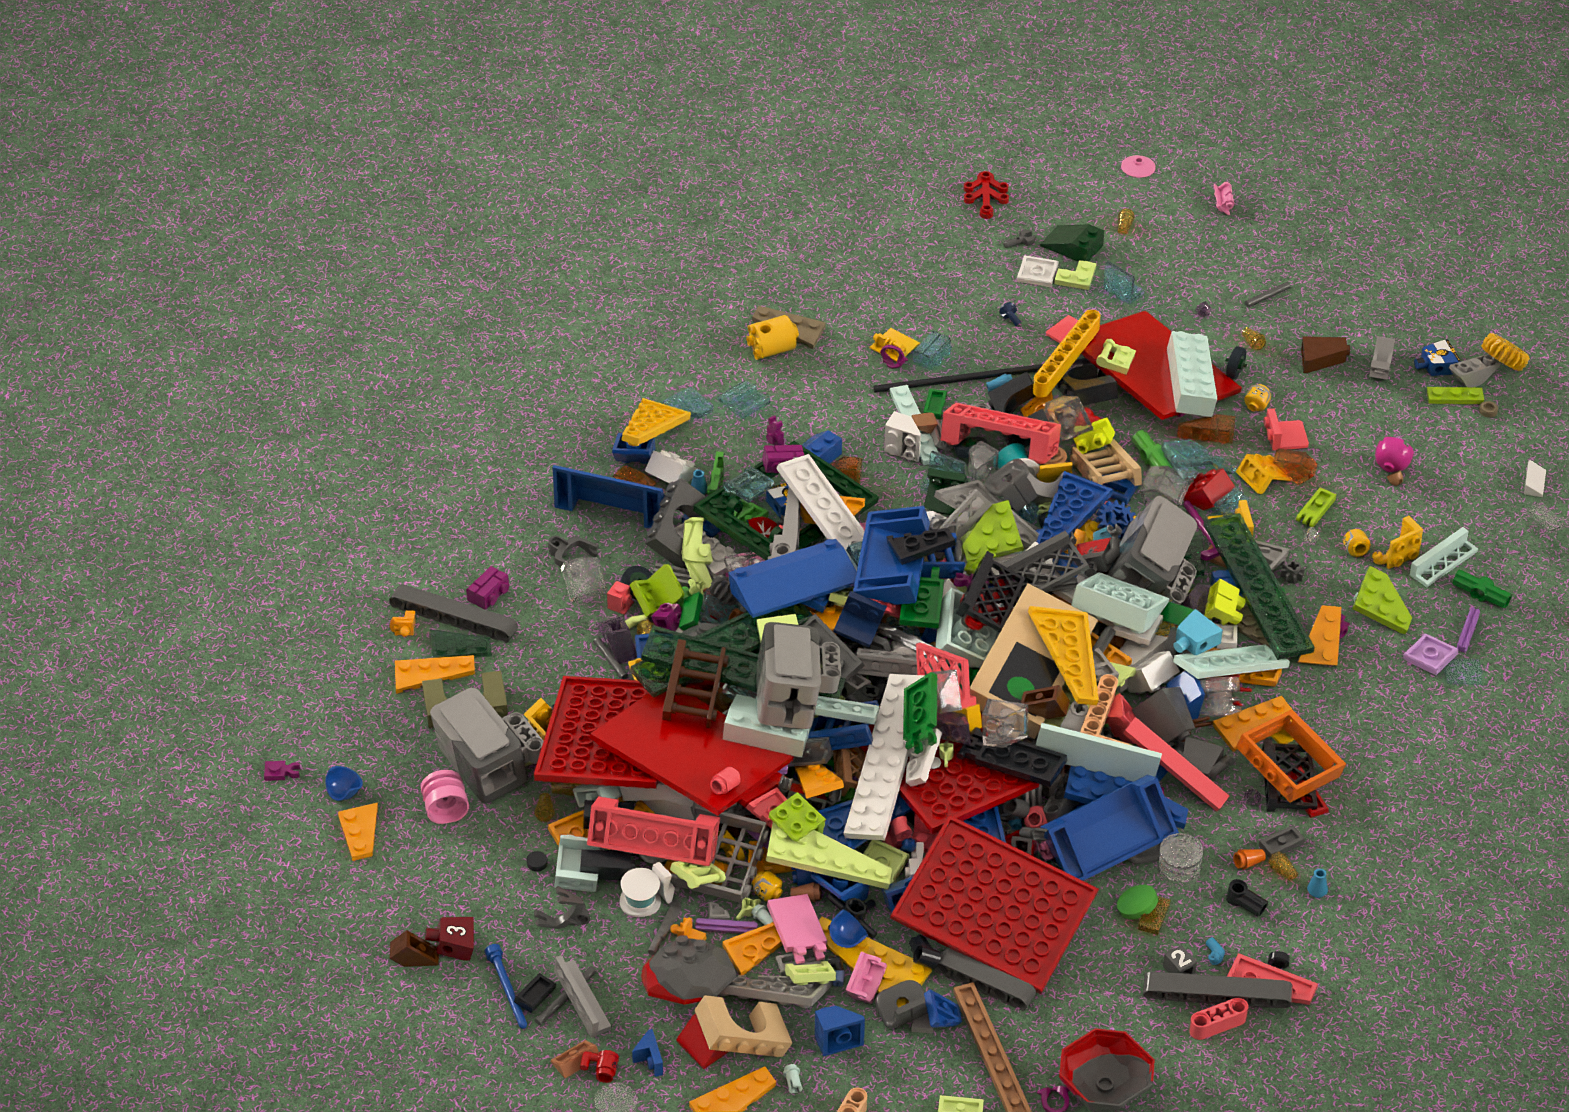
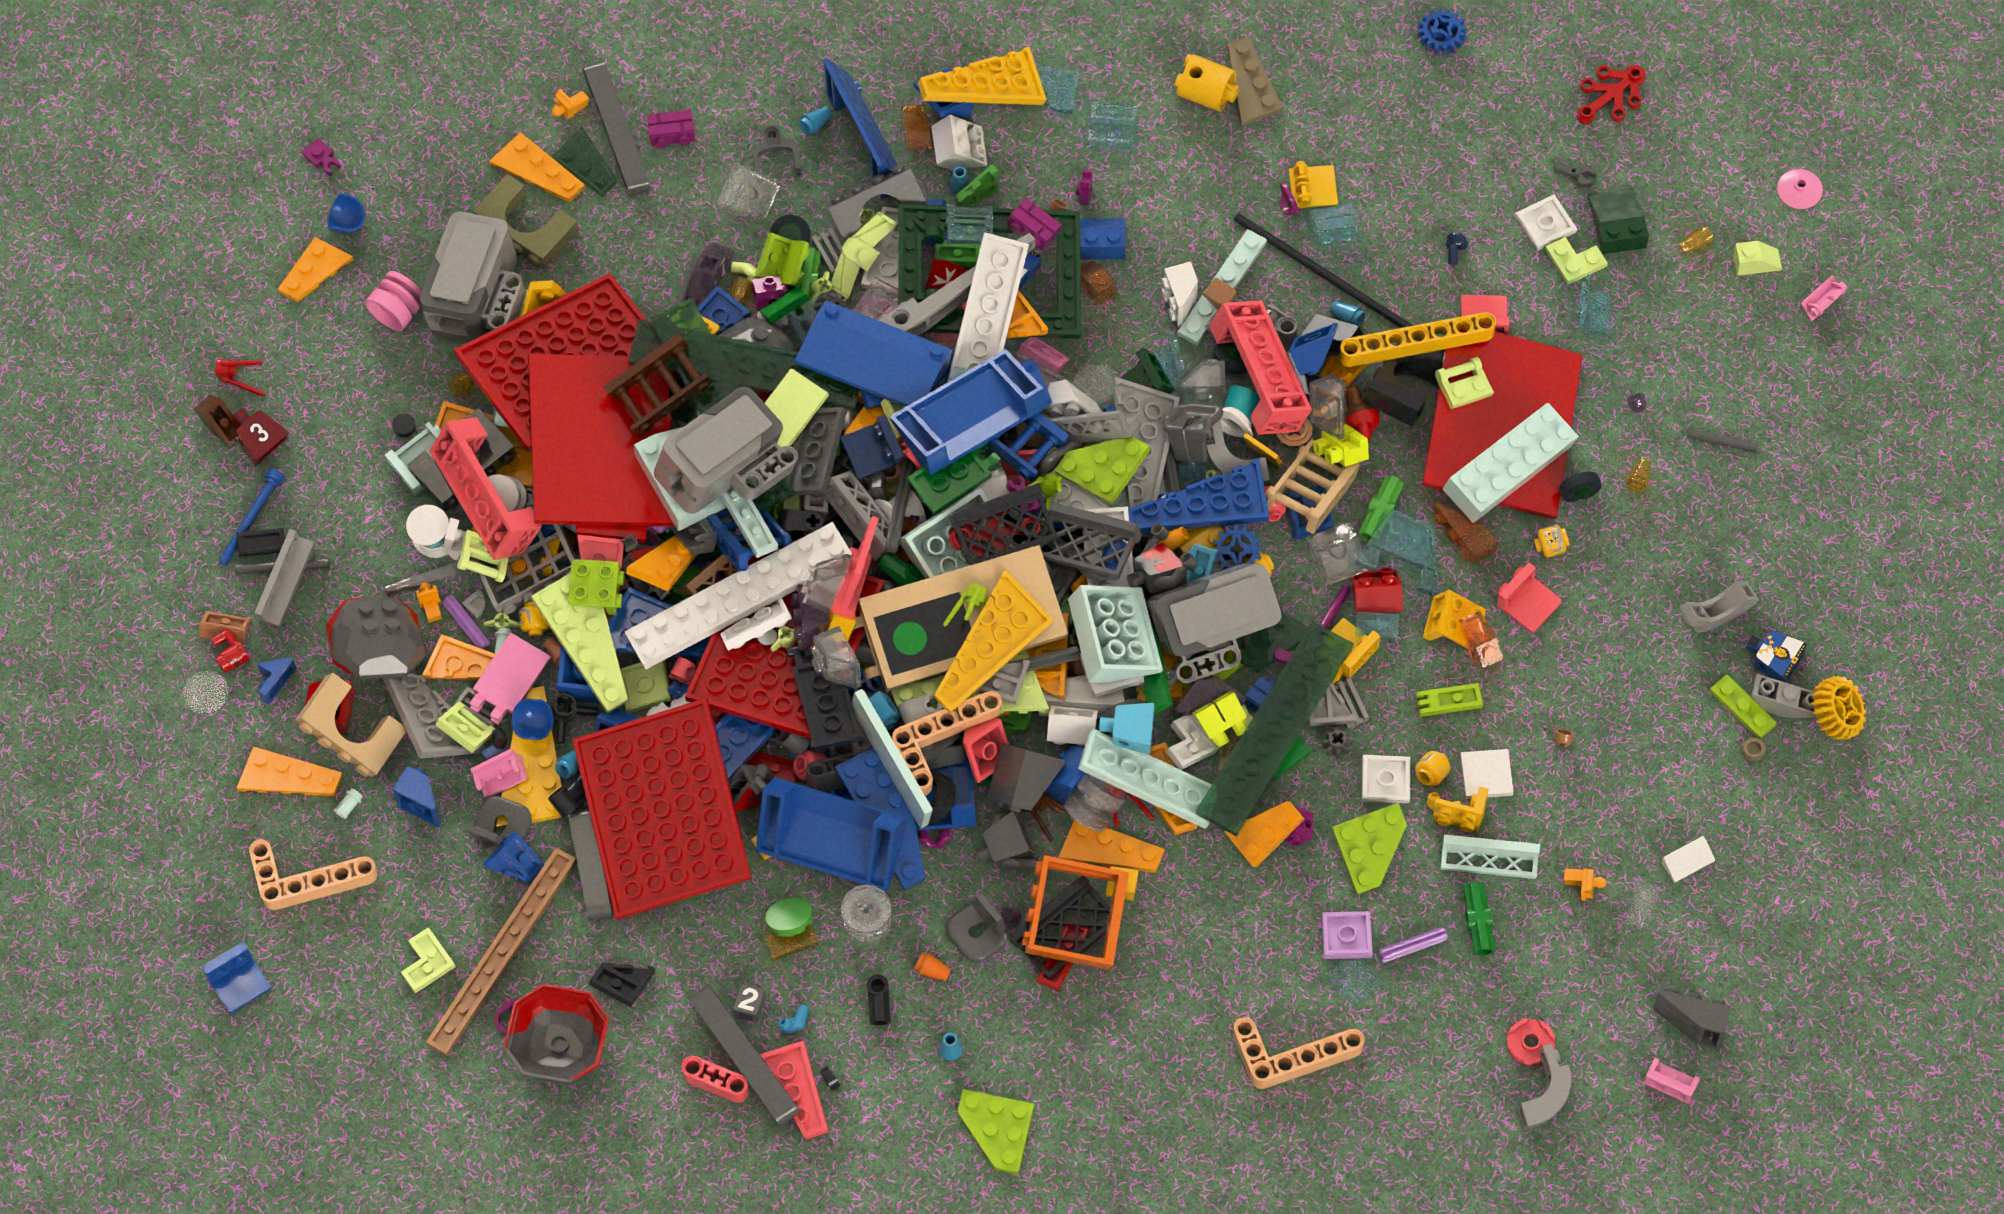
camera: 50 degrees right, 20 degrees up
(379, 922) = (228, 368): none -> red plant
(569, 522) = (813, 121): none -> dark azure cone
(575, 915) = (359, 494): dark grey piece -> none
(619, 598) = (756, 235): coral brick -> none
(725, 780) = (570, 498): coral brick -> none
(859, 228) = (1441, 32): none -> blue gear
(897, 938) = (567, 765): none -> dark azure cone
(918, 546) = (997, 422): black wing -> none
(920, 712) = (786, 585): green tile -> none
(935, 402) = (1267, 281): green tile -> none
(1021, 396) = (1311, 349): none -> blue slope
(1031, 634) = (974, 597): none -> lime plant
(1046, 702) = (908, 671): reddish brown slope -> none
(1090, 1018) = (621, 981): none -> black wing
(1164, 208) = (1755, 258): none -> yellowish green slope
(1177, 764) = (971, 827): coral tile -> none
(1245, 799) = (989, 942): none -> dark grey piece
(1282, 841) = (977, 980): dark grey plate -> none
(1282, 865) = (948, 1002): clear yellow cone -> none
(1311, 535) = (1406, 723): clear hinge -> none
(1323, 352) = (1679, 549): reddish brown slope -> none
(1339, 570) = (1385, 779): none -> white tile
(1382, 525) = (1487, 770): none -> white tile
(1393, 454) = (1581, 715): dark pink cylinder -> none
(1399, 902) = (997, 1126): none -> lime plate
(1488, 748) = (1293, 1057): none -> light nougat beam
(1502, 528) = (1586, 879): none -> light orange piece

